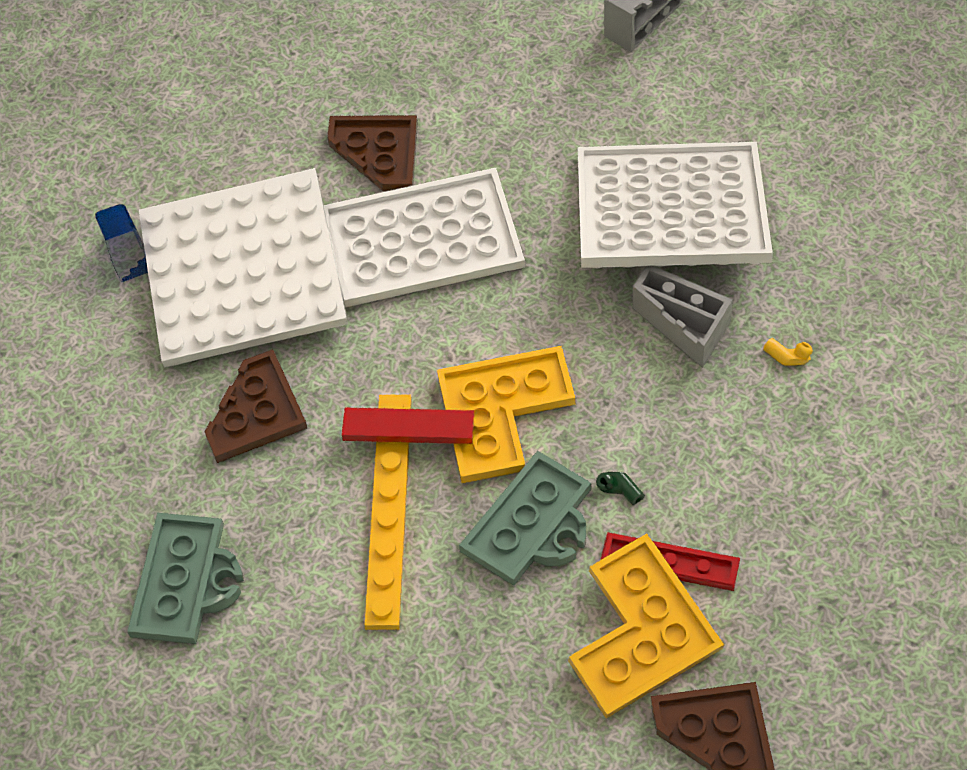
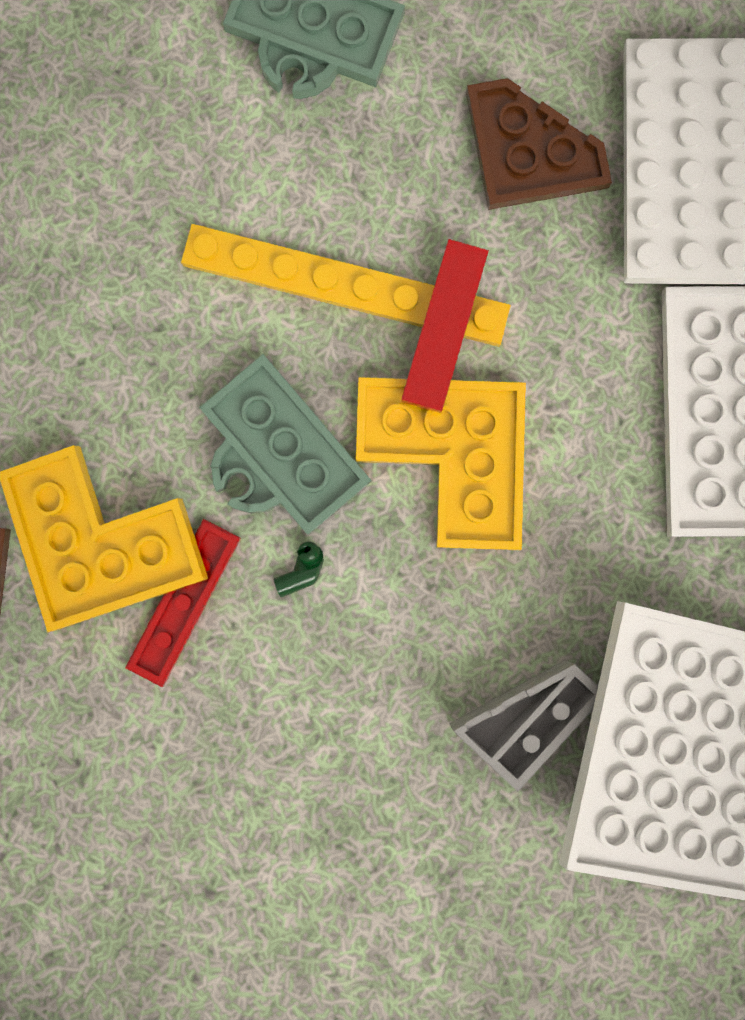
camera: 100 degrees right, 30 degrees up
(788, 357) = (435, 841): yellow arm -> none

